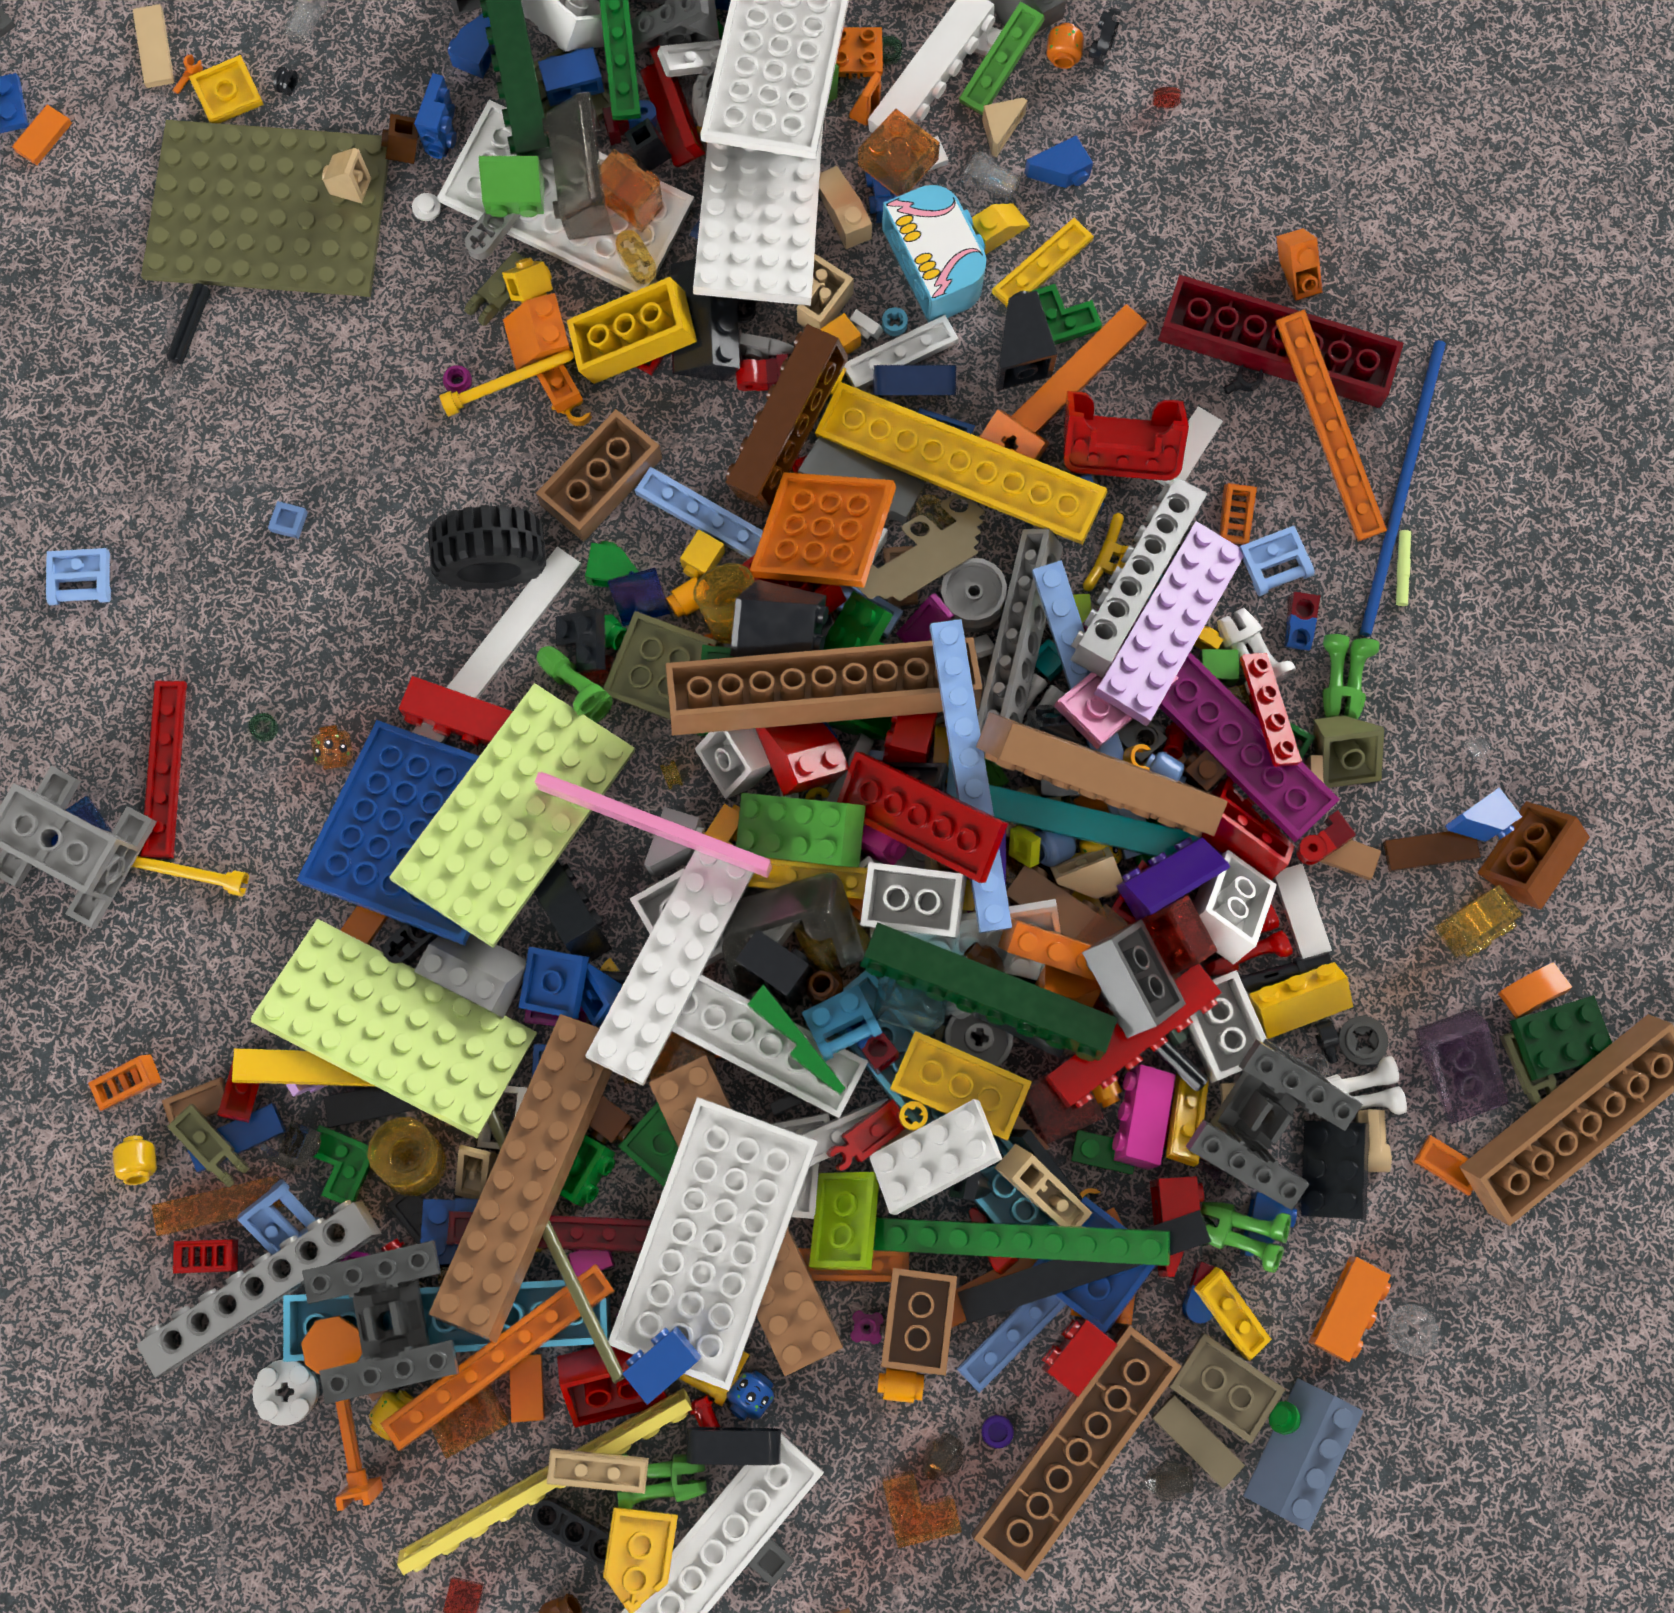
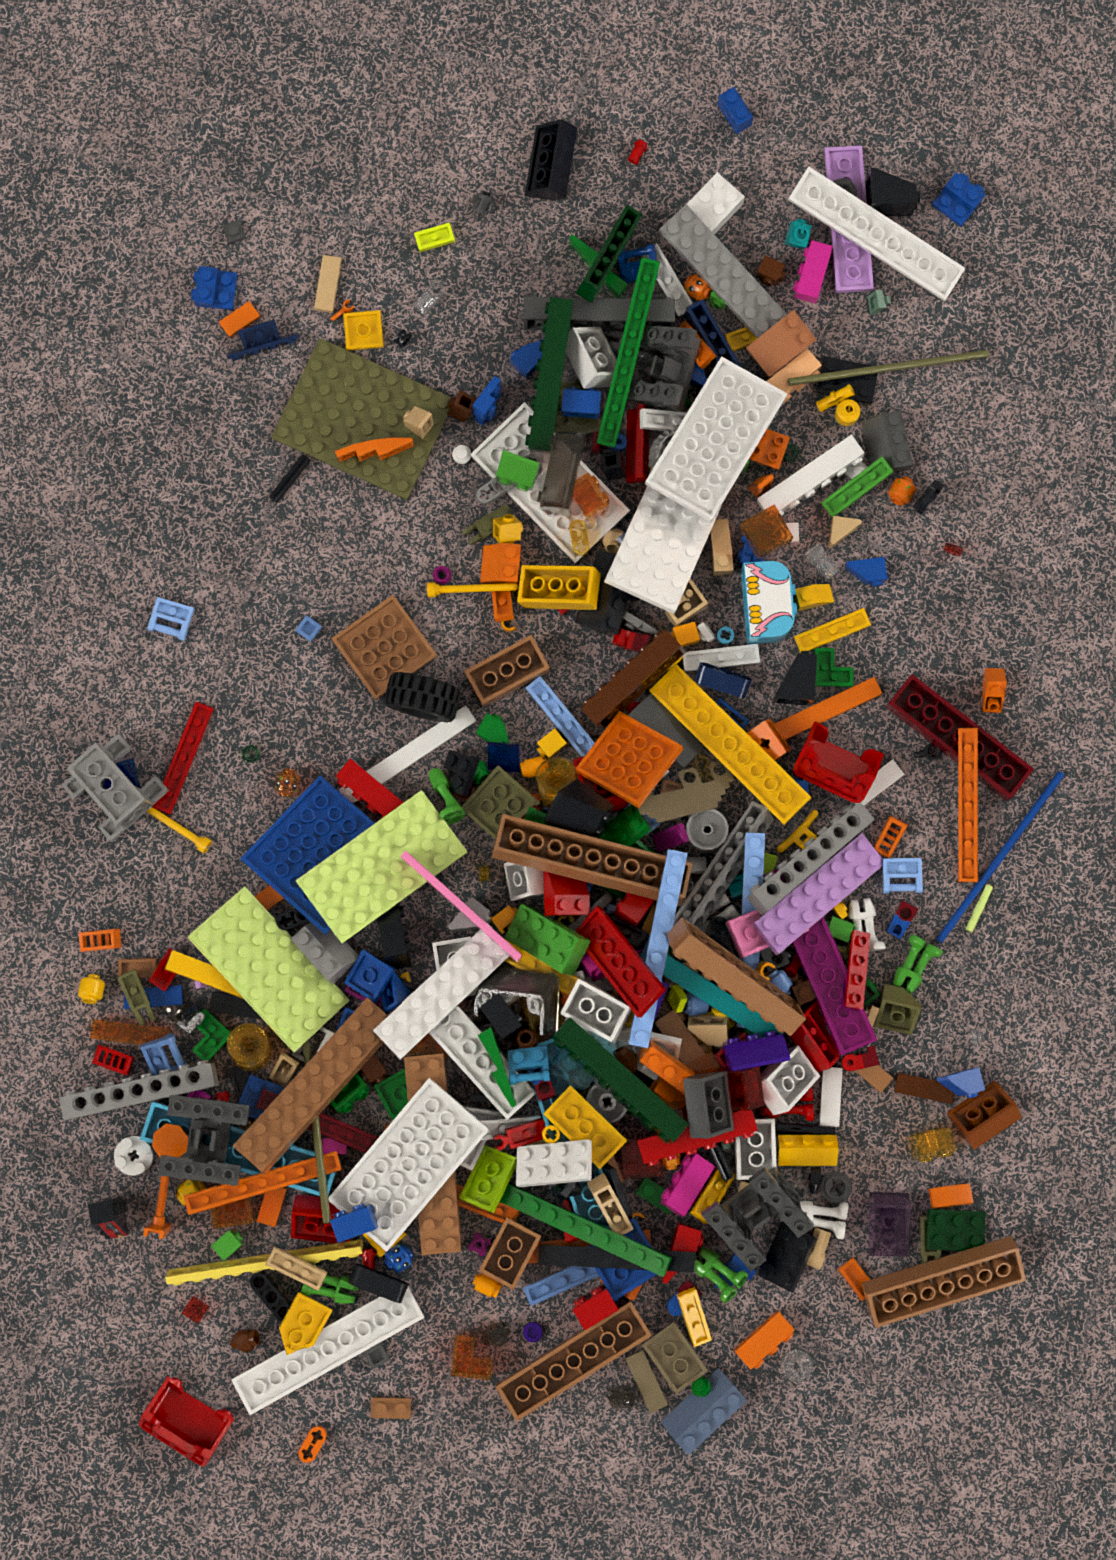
camera: 20 degrees right, 5 degrees up
(78, 145) = (260, 337): none -> dark blue bracket
(276, 1502) = (109, 1217): none -> black wedge
(304, 230) = (381, 447): none -> orange slope
(399, 500) = (383, 644): none -> medium nougat plate
(479, 1474) = (228, 1244): none -> bright green brick
(683, 246) = (610, 540): none -> tan rock

